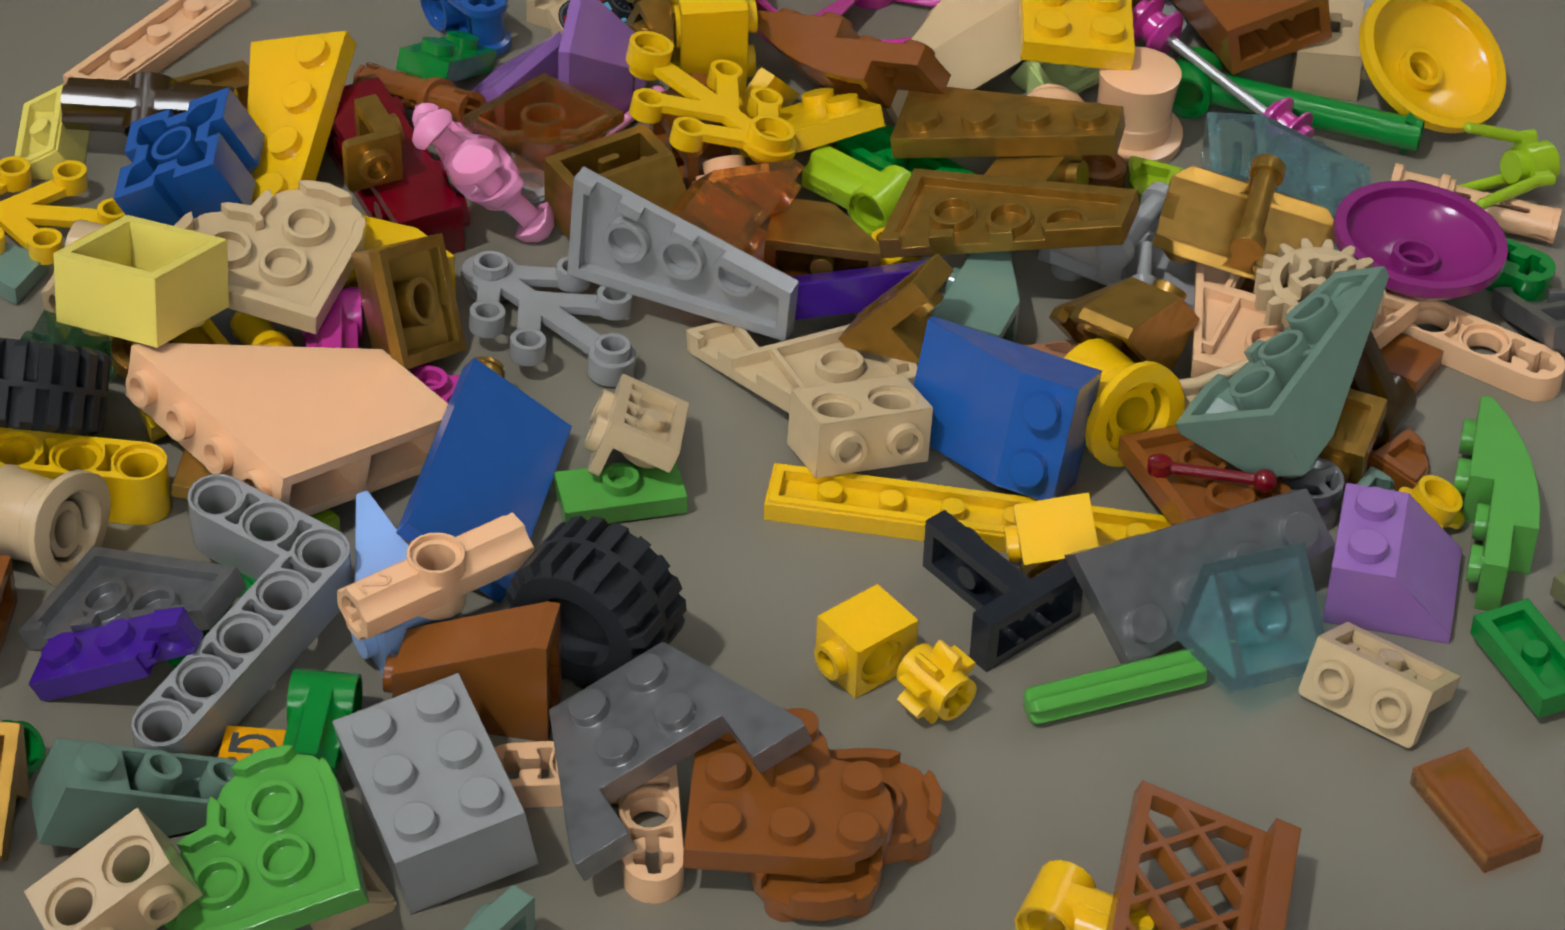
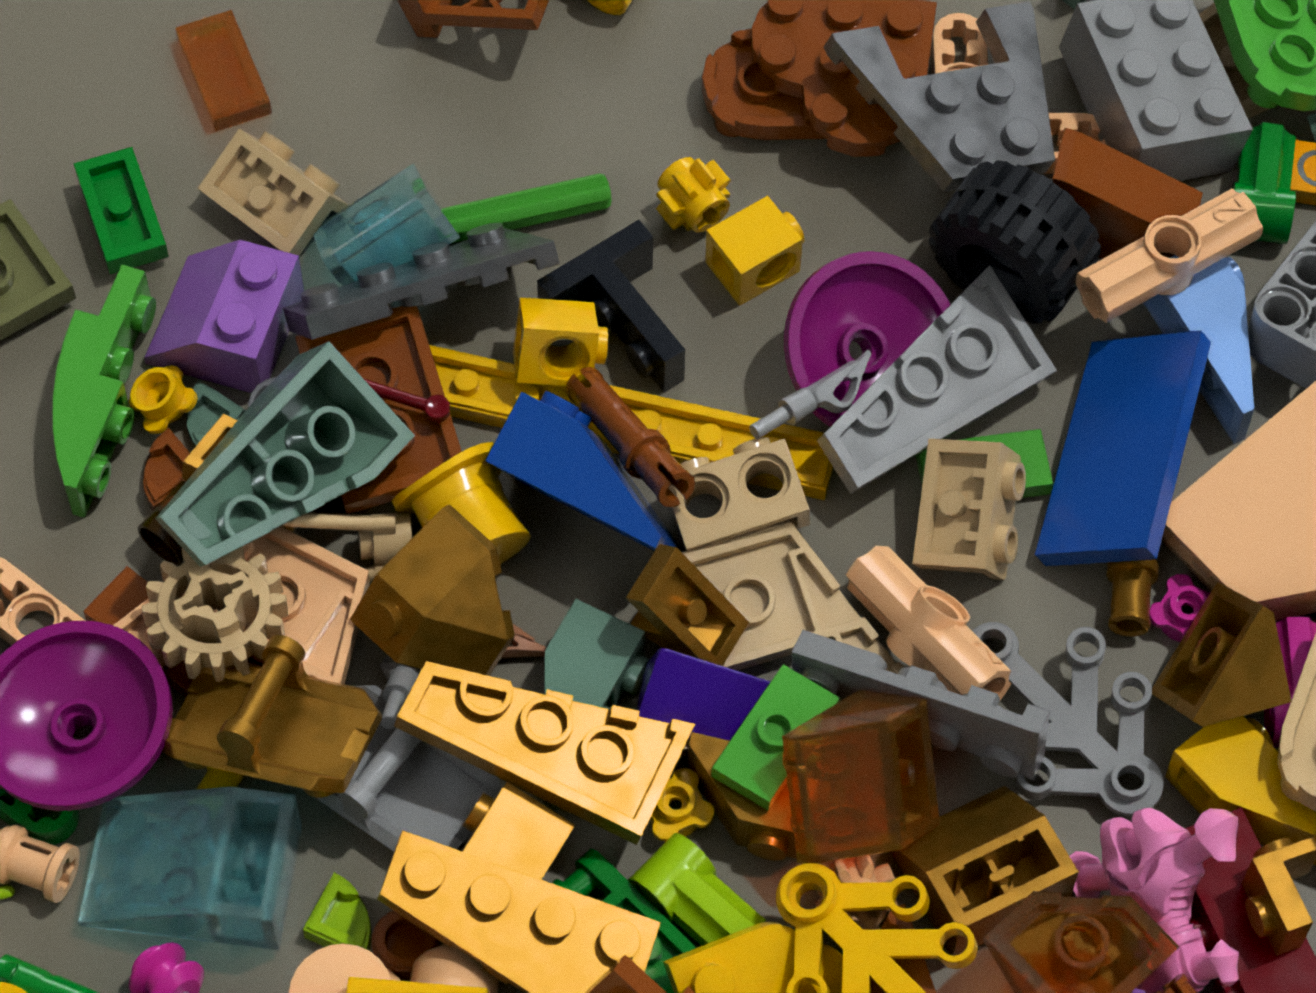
camera: 175 degrees left, 20 degrees up
(694, 367) = (925, 624): none -> light nougat piece
(699, 492) = (945, 380): none -> light grey wing
(744, 539) = (860, 299): none -> magenta dish
(782, 478) = (819, 394): none -> light grey hand
(809, 236) = (755, 754): none -> bright green plate
(956, 419) = (641, 450): none -> dark orange pin

